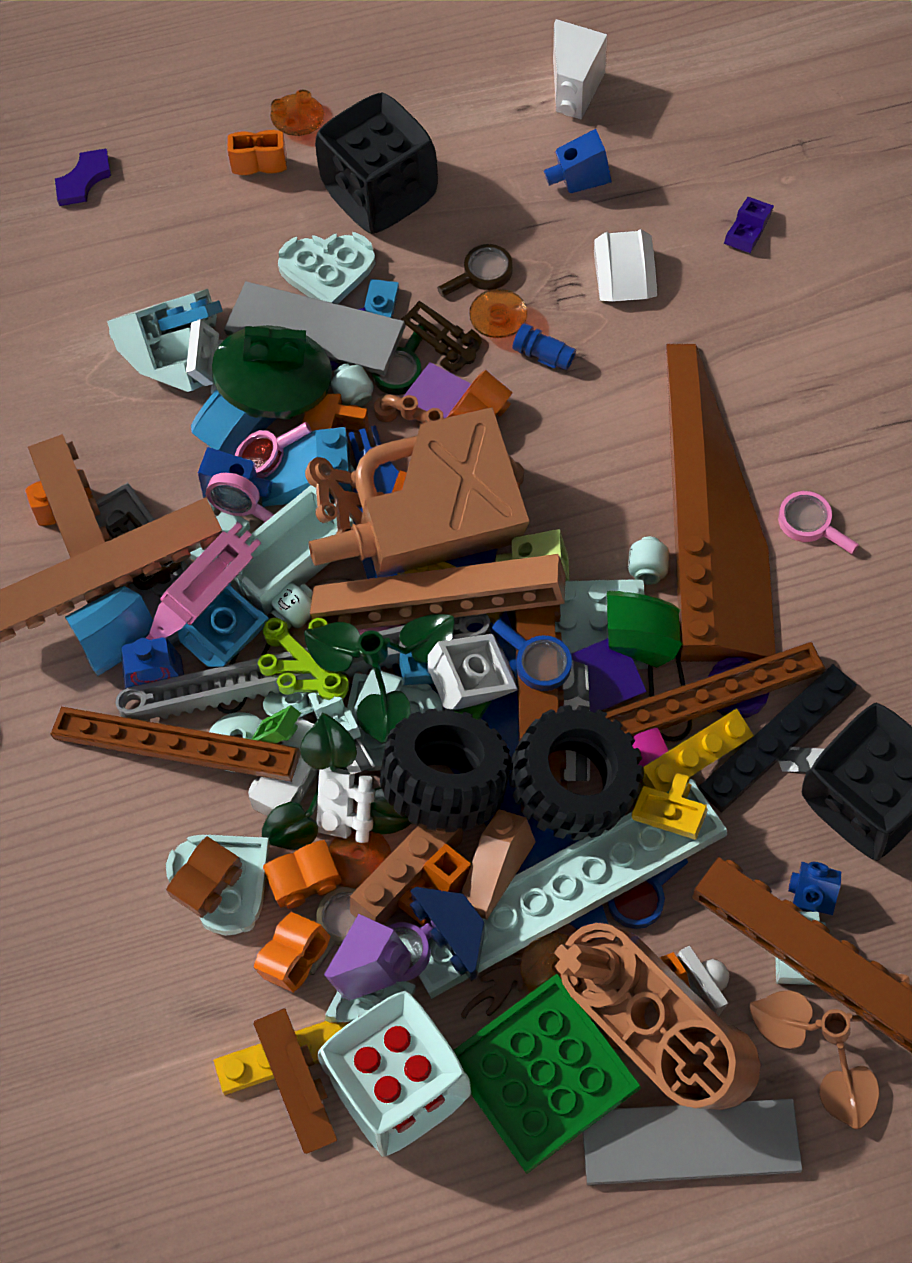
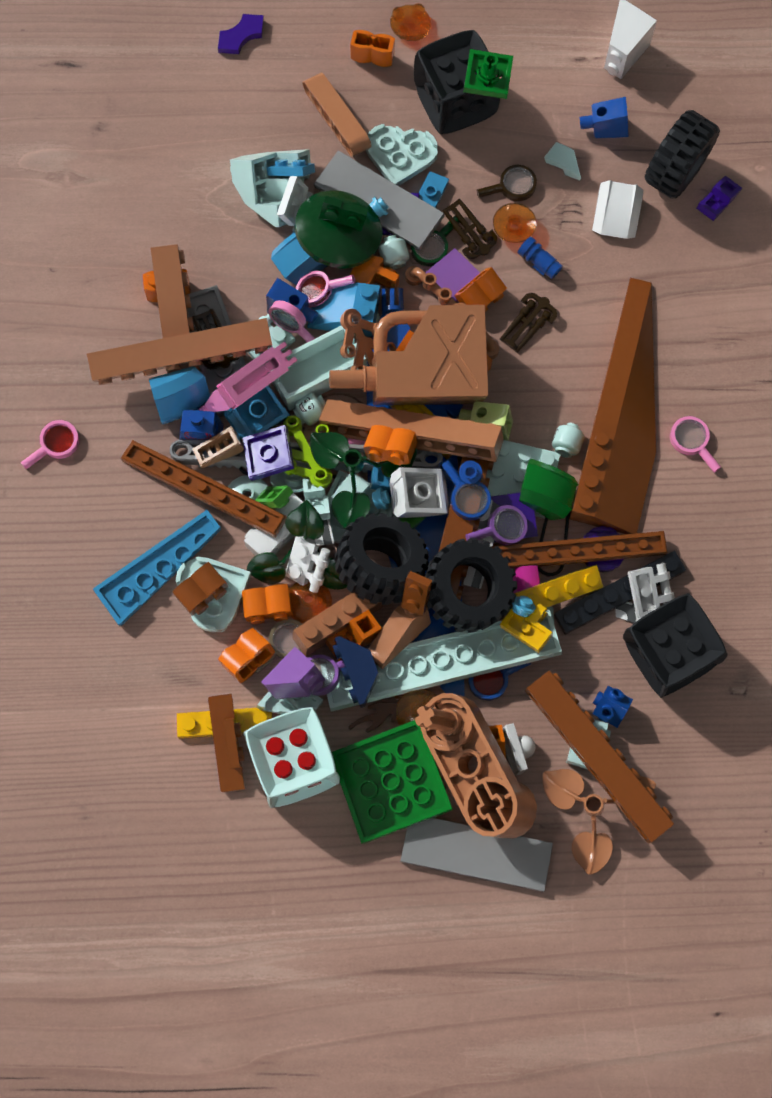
camera: 10 degrees right, 10 degrees up
(118, 887) = (139, 580): none -> dark azure wing
(188, 691) = (221, 454): none -> medium nougat slope
(232, 239) = (336, 114): none -> nougat beam
(252, 672) = (268, 453): none -> tile
(318, 332) = (379, 206): none -> medium azure plate
(416, 129) = (489, 66): none -> green plate
(416, 617) = (390, 444): none -> orange brick
(422, 693) = (381, 498): none -> medium azure plate
(507, 798) = (416, 593): none -> dark orange plate
(534, 626) = (470, 472): none -> blue plate
(539, 223) = (564, 158): none -> light aqua slope
(564, 402) = (543, 303): none -> dark brown piece
(599, 685) = (505, 525): none -> piece
(657, 781) = (523, 606): none -> medium azure plate
(687, 177) = (682, 153): none -> black tyre
(810, 720) = (644, 588): none -> white plate

